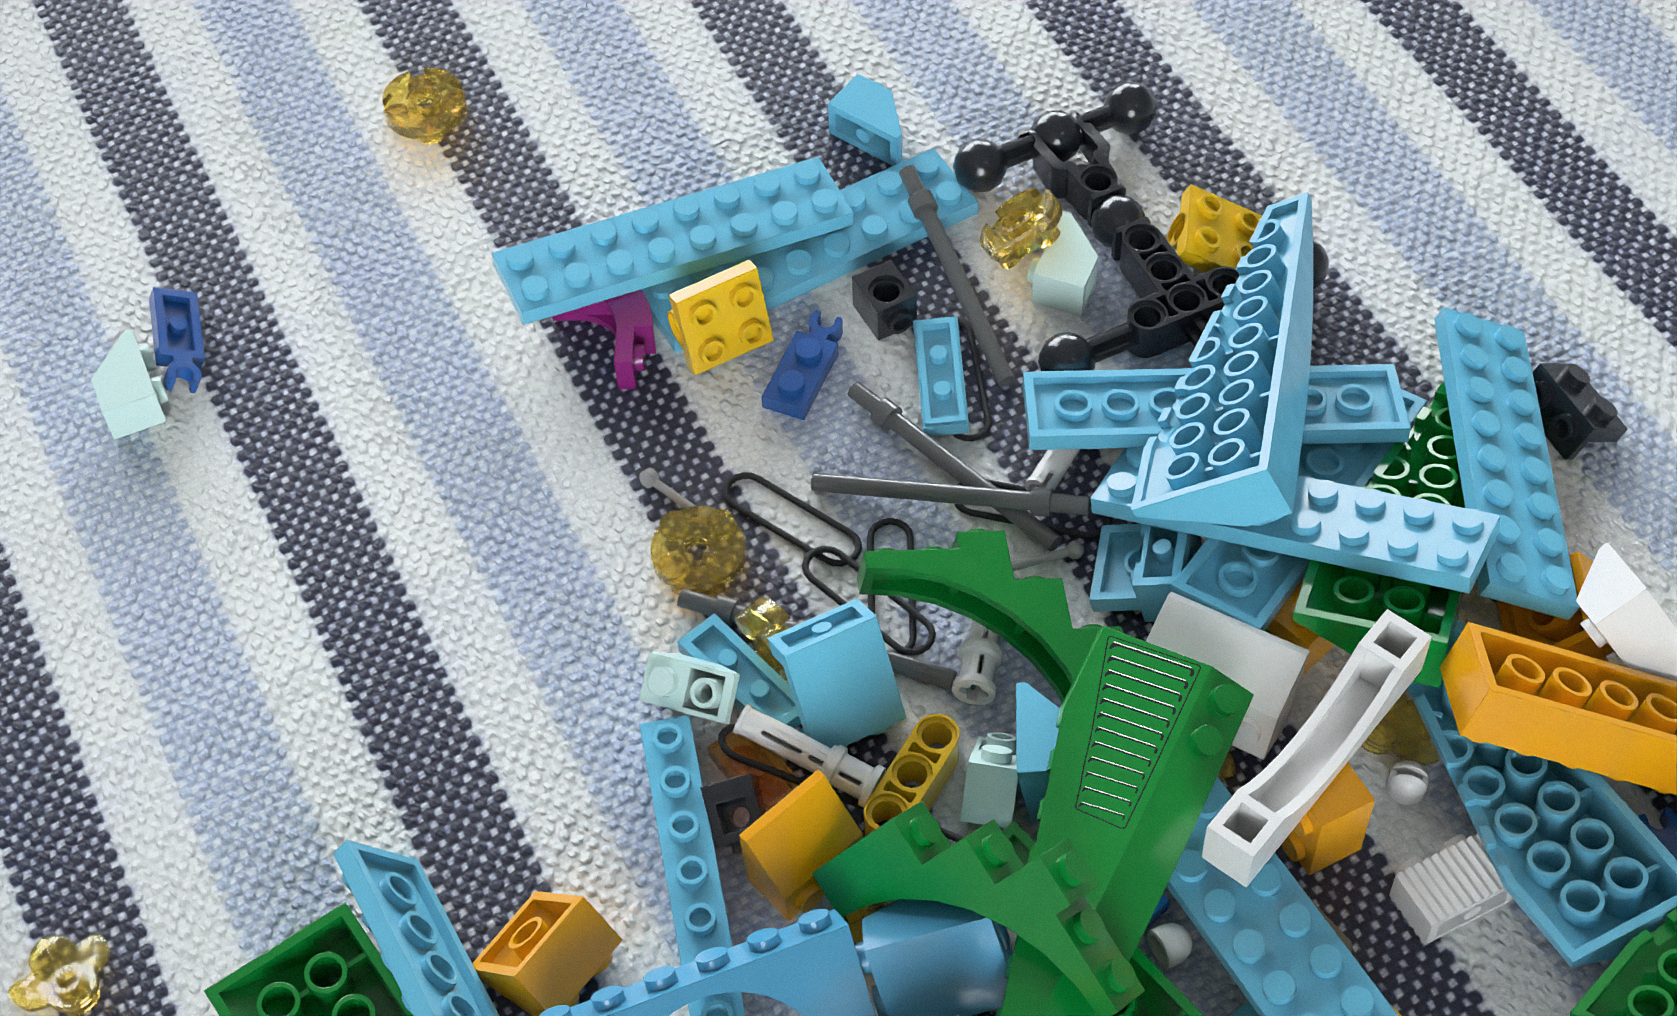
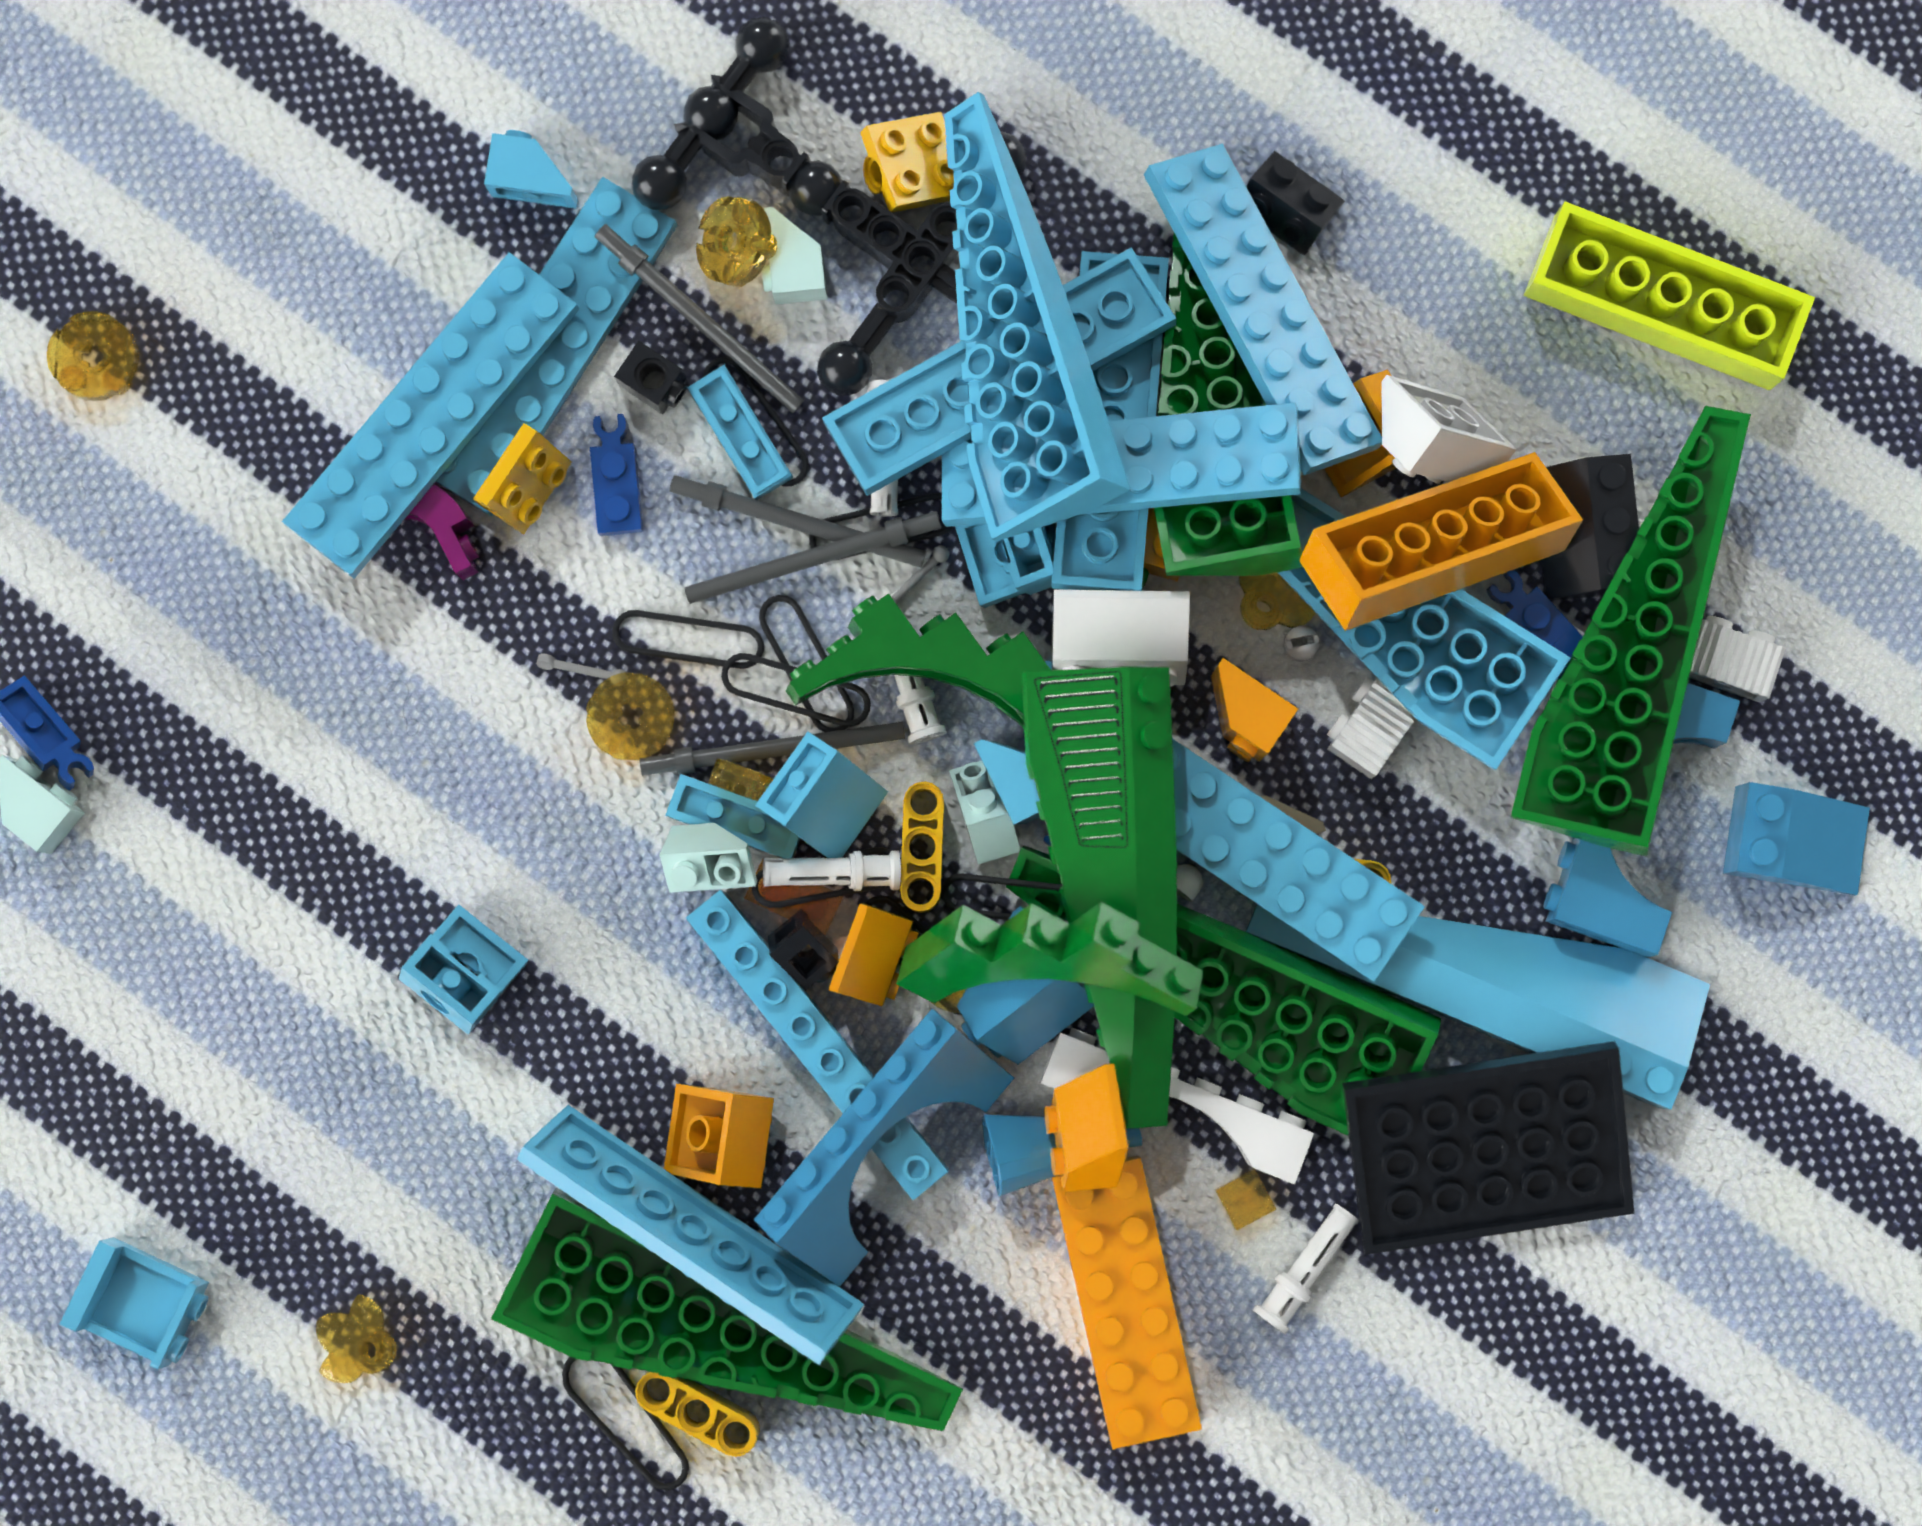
camera: 25 degrees left, 30 degrees up
(398, 683) = (452, 986): none -> medium azure brick
(1278, 798) = (1241, 698): white arch -> none

